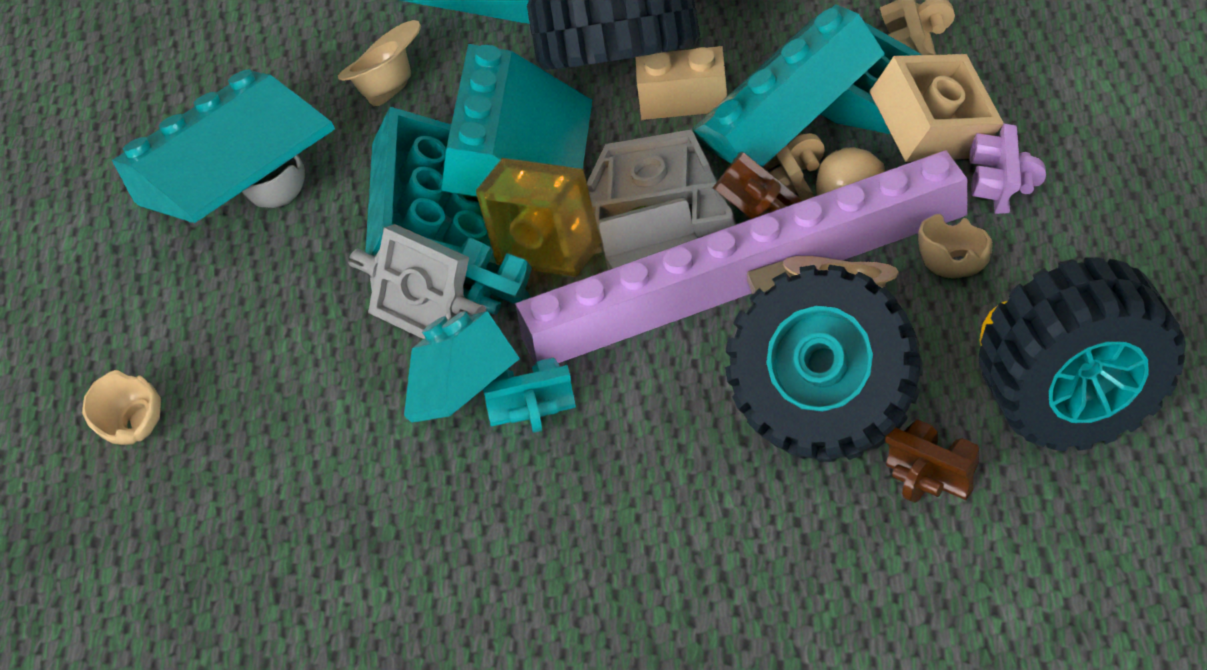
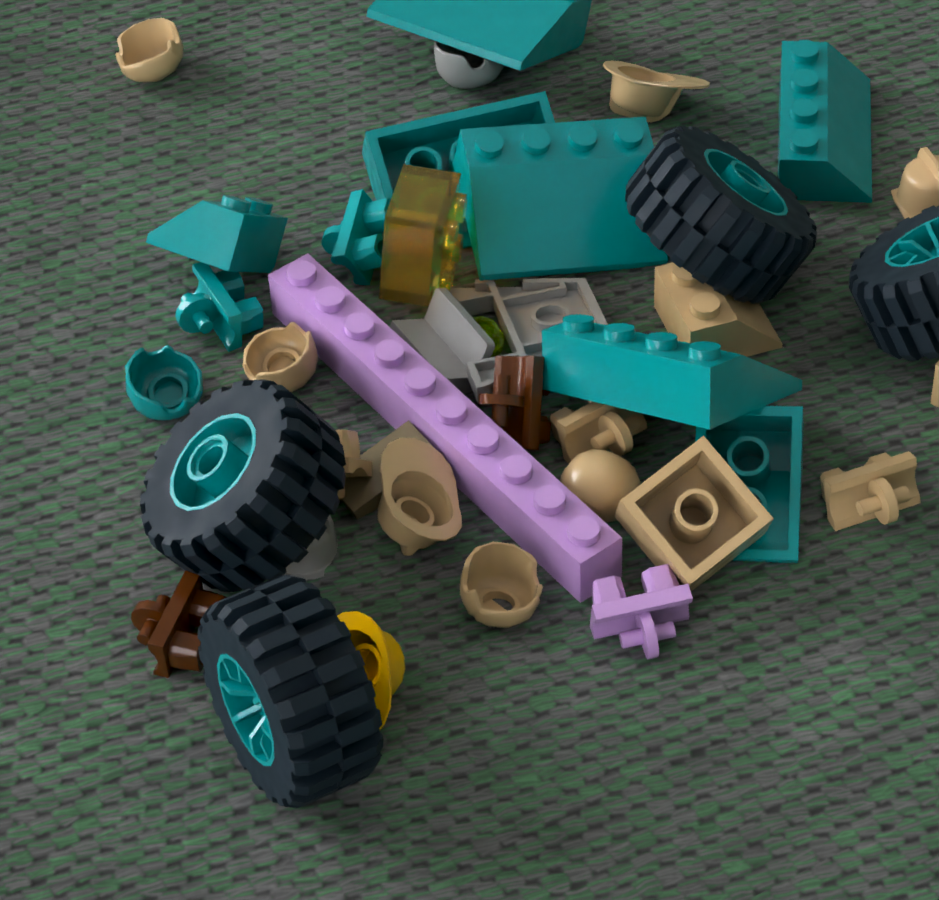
camera: 70 degrees right, 0 degrees up
(414, 280) = (332, 186): light grey plate -> none
(613, 436) = (163, 383): none -> teal hair
(616, 348) = (281, 356): none -> tan hair

